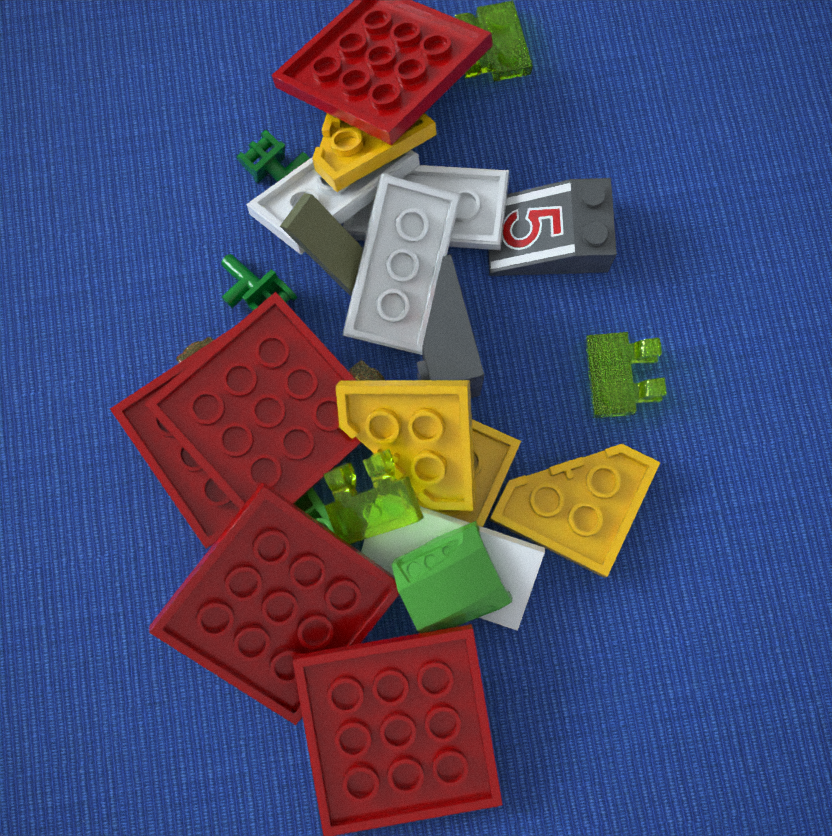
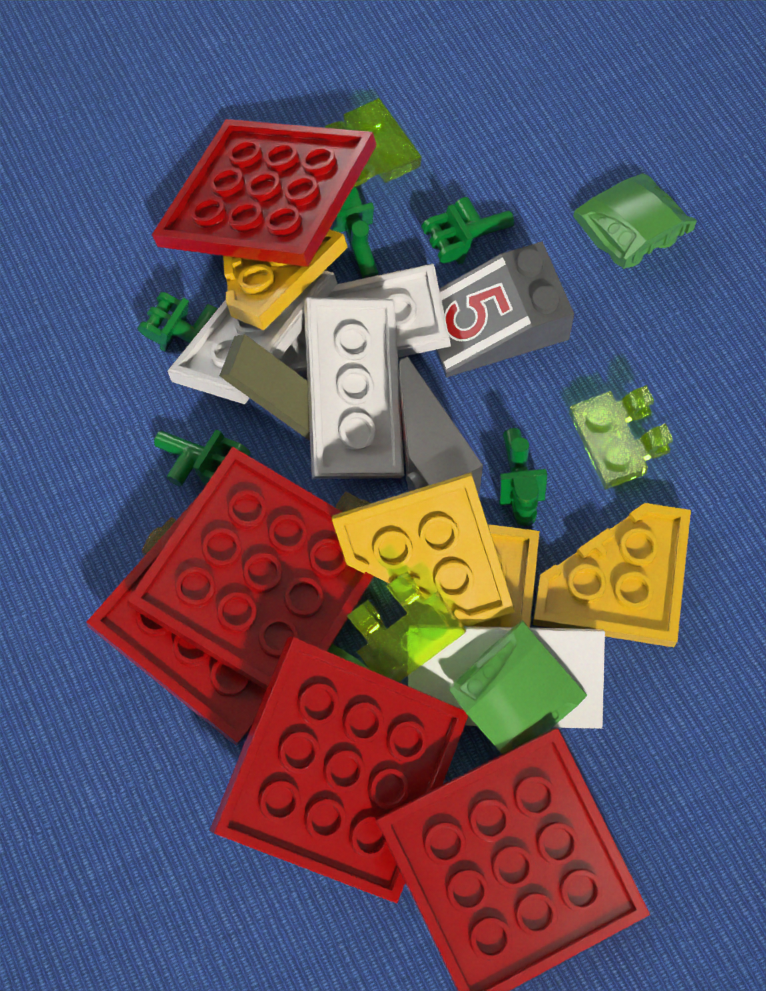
camera: 20 degrees left, 10 degrees down
(452, 107) = (355, 220): none -> green arm
(520, 396) = (521, 486): none -> green arm
(536, 150) = (457, 228): none -> green arm
(702, 178) = (633, 220): none -> bright green slope

